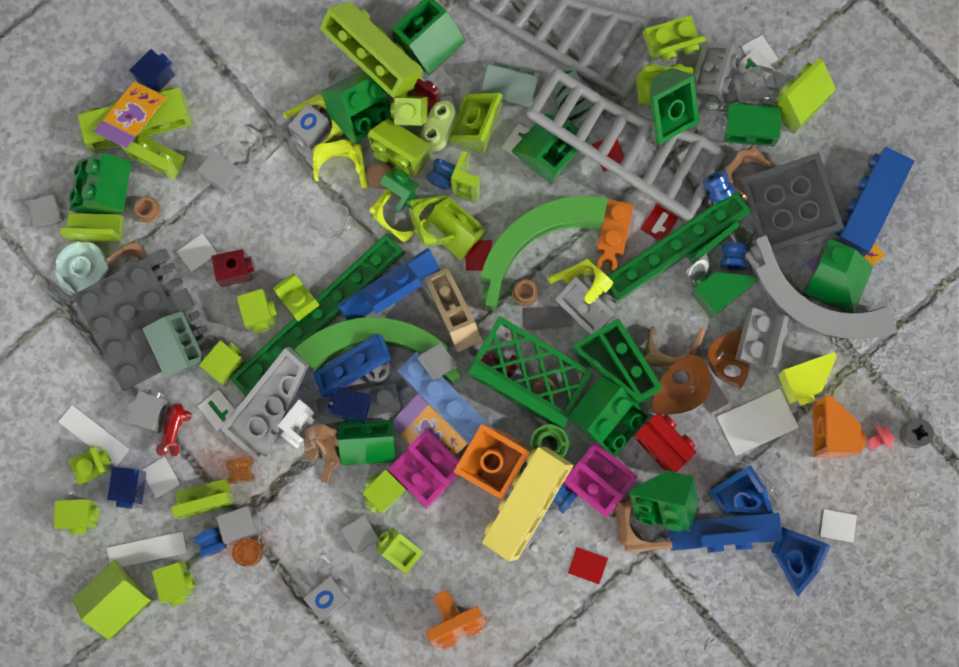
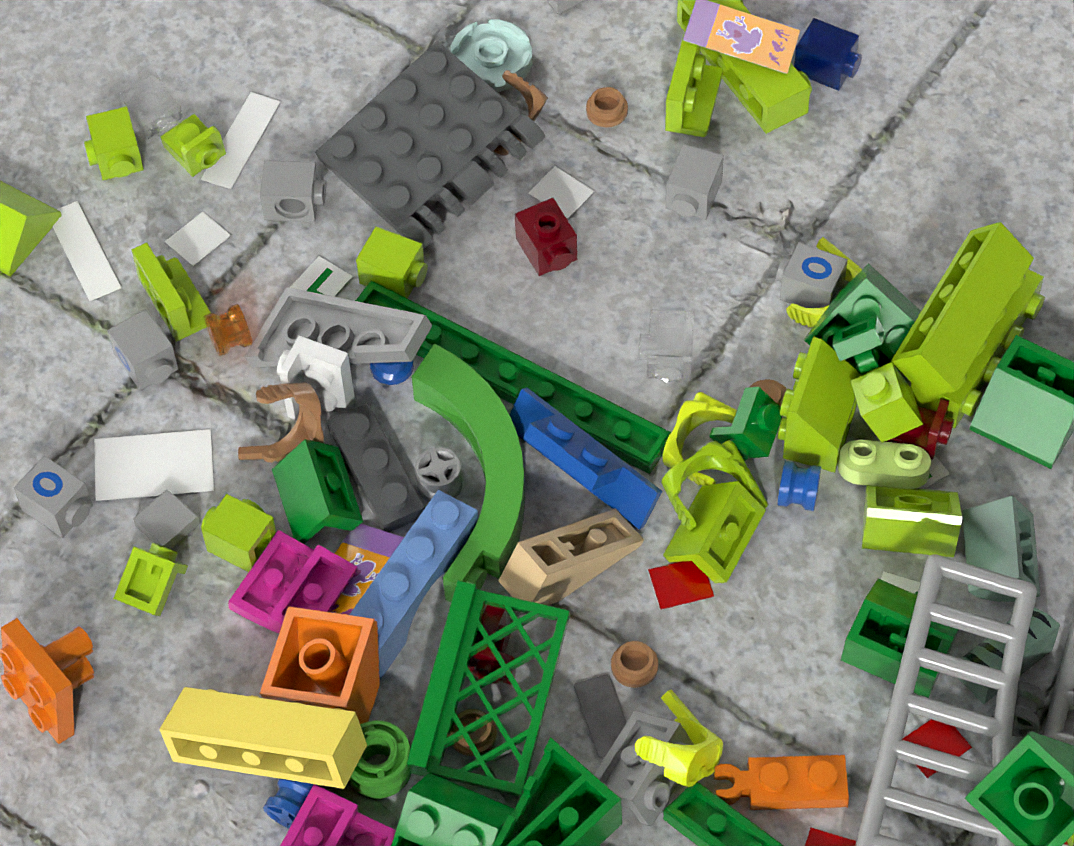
camera: 75 degrees right, 20 degrees down
(93, 228) = (556, 51): lime panel -> none
(100, 184) = (624, 38): green slope -> none
(126, 487) = (169, 193): clear blue brick -> none
(173, 344) = (399, 184): sand green brick -> none
(174, 419) = (291, 225): red piece -> none
(174, 584) = (36, 289): lime brick -> none
(209, 542) = (105, 316): blue wheel -> none
(243, 549) = (100, 363): clear orange wheel -> none
(257, 311) = (486, 286): lime brick -> none
(295, 296) = (527, 332): lime bracket -> none
(316, 535) = (153, 464): none -> white sticker
(341, 148) = (777, 311): neon yellow helmet -> none
(350, 405) = (363, 441): clear blue brick -> none
(352, 365) = (432, 432): blue tile -> none
(375, 110) = (861, 342): none -> green tile
(437, 361) = (466, 539): light grey tile -> none
(463, 183) = (802, 504): lime panel -> none
(542, 220) = (738, 634): bright green arch -> none

